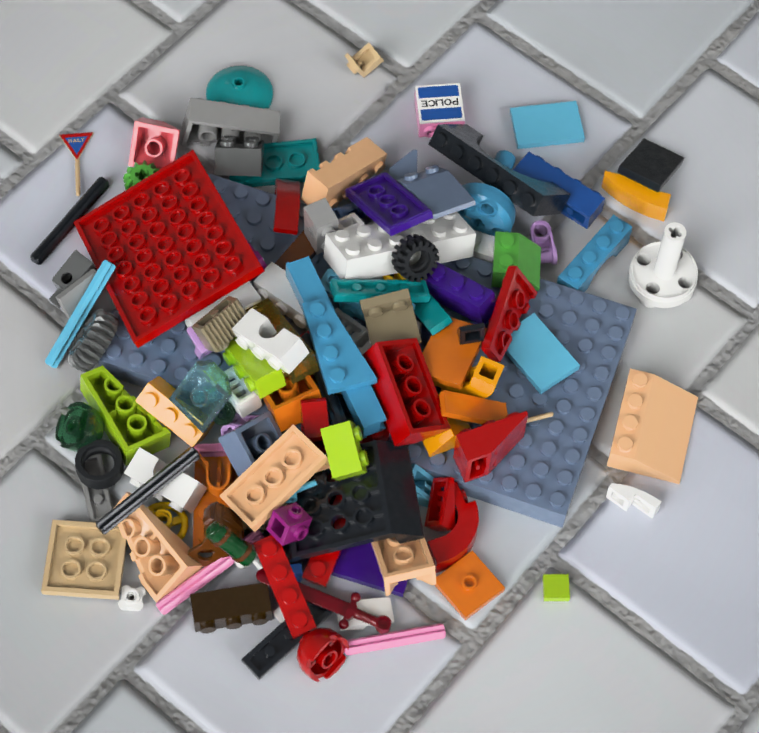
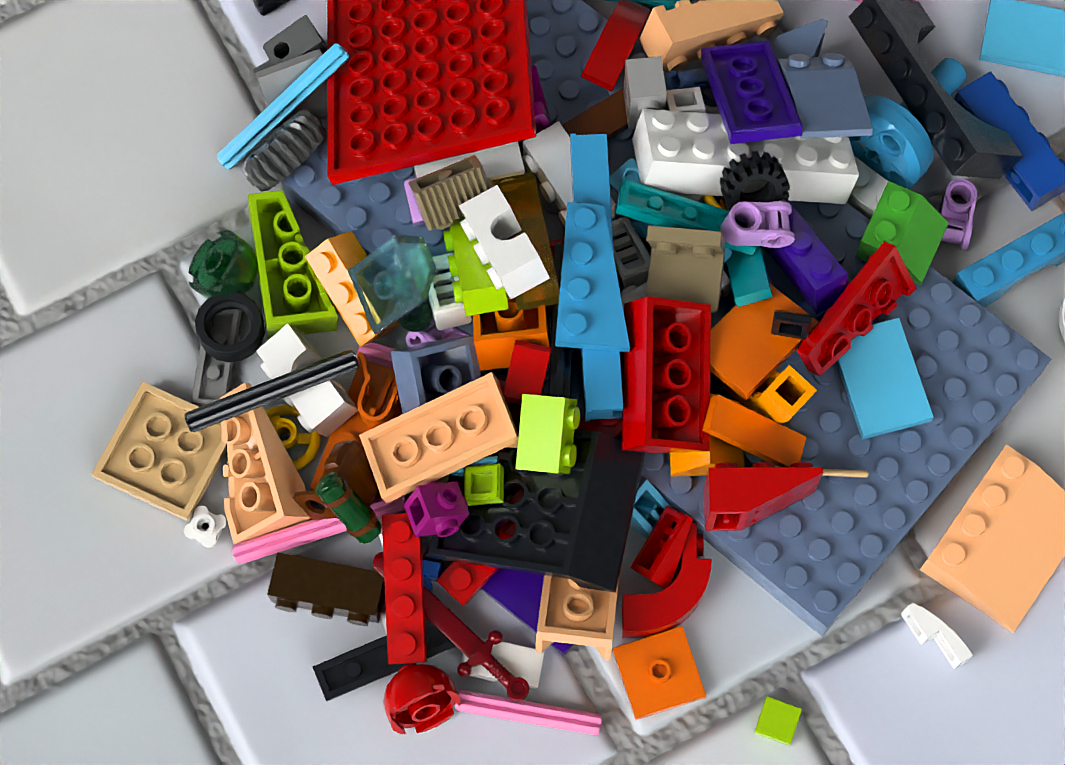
camera: 25 degrees right, 10 degrees up
(313, 499) = (484, 484): none -> lime tile
(427, 279) = (765, 223): none -> lavender piece

